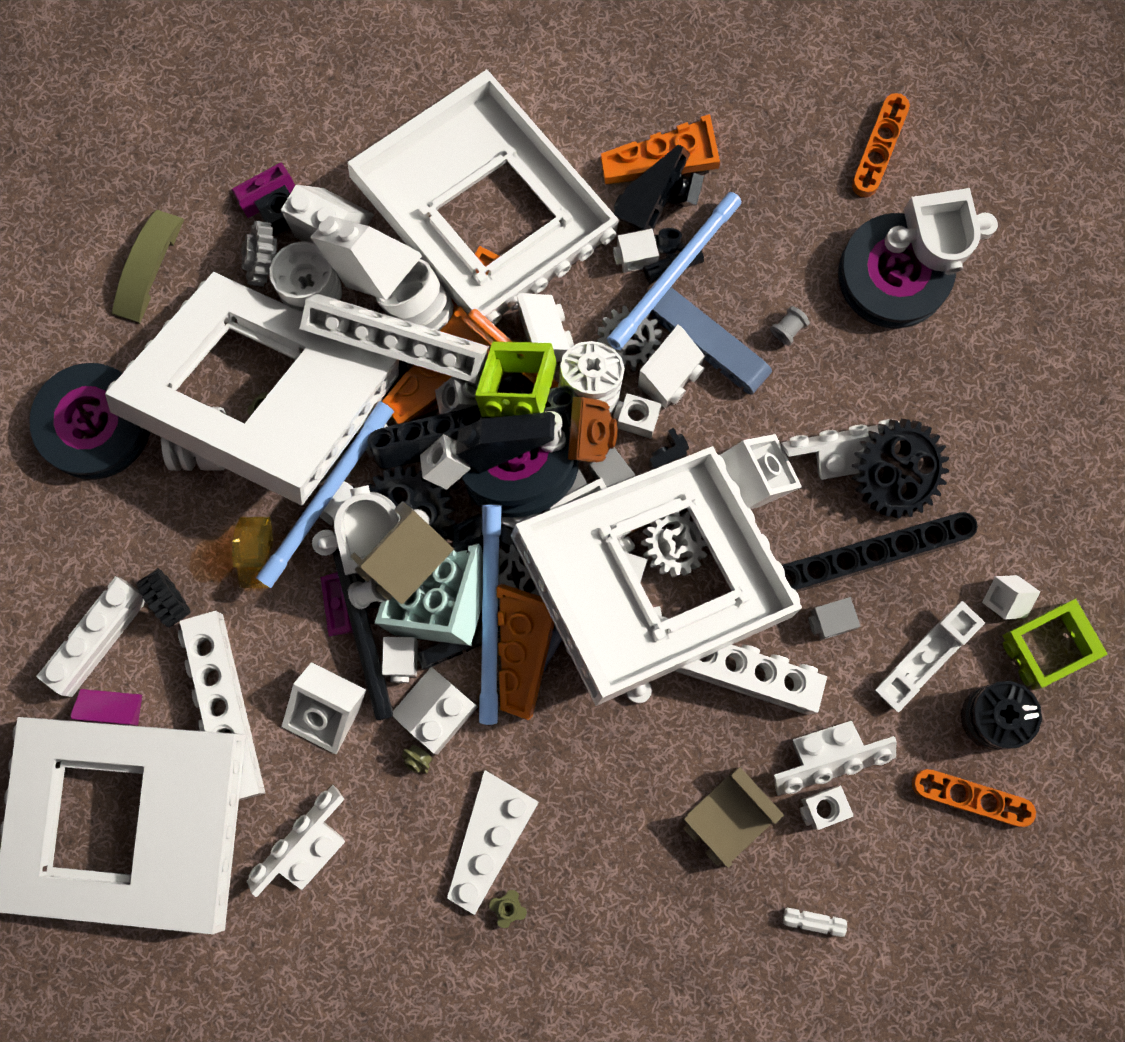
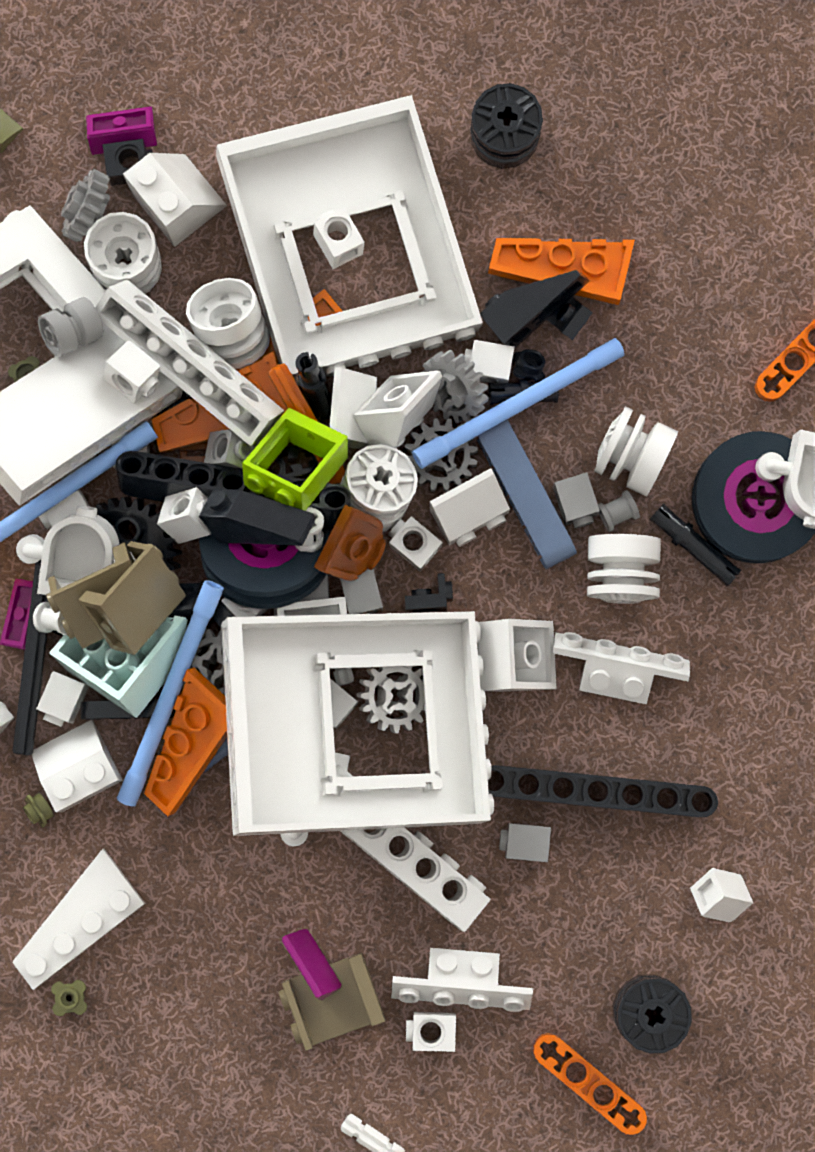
camera: 20 degrees right, 5 degrees up
(288, 345) = (74, 325): none -> light grey wheel
(352, 362) = (132, 372): none -> white brick
(364, 256) = (192, 260): white slope -> none
(432, 545) = (136, 601): none -> dark tan panel
(478, 205) = (338, 251): none -> white brick
(503, 314) = (312, 381): none -> black pin
(571, 64) = (502, 144): none -> black wheel
(580, 309) = (397, 407): none -> white slope
(617, 277) = (460, 387): none -> light grey gear
(700, 794) = (312, 963): none -> magenta slope
(753, 329) = (576, 500): none -> light grey brick
(785, 270) = (635, 451): none -> white wheel
(815, 361) = (623, 567): none -> white wheel
(858, 326) = (694, 544): none -> black pin
(915, 444) = (691, 696): black gear -> none
(929, 656) = (607, 921): white slope -> none
(1081, 632) = (777, 963): lime window -> none

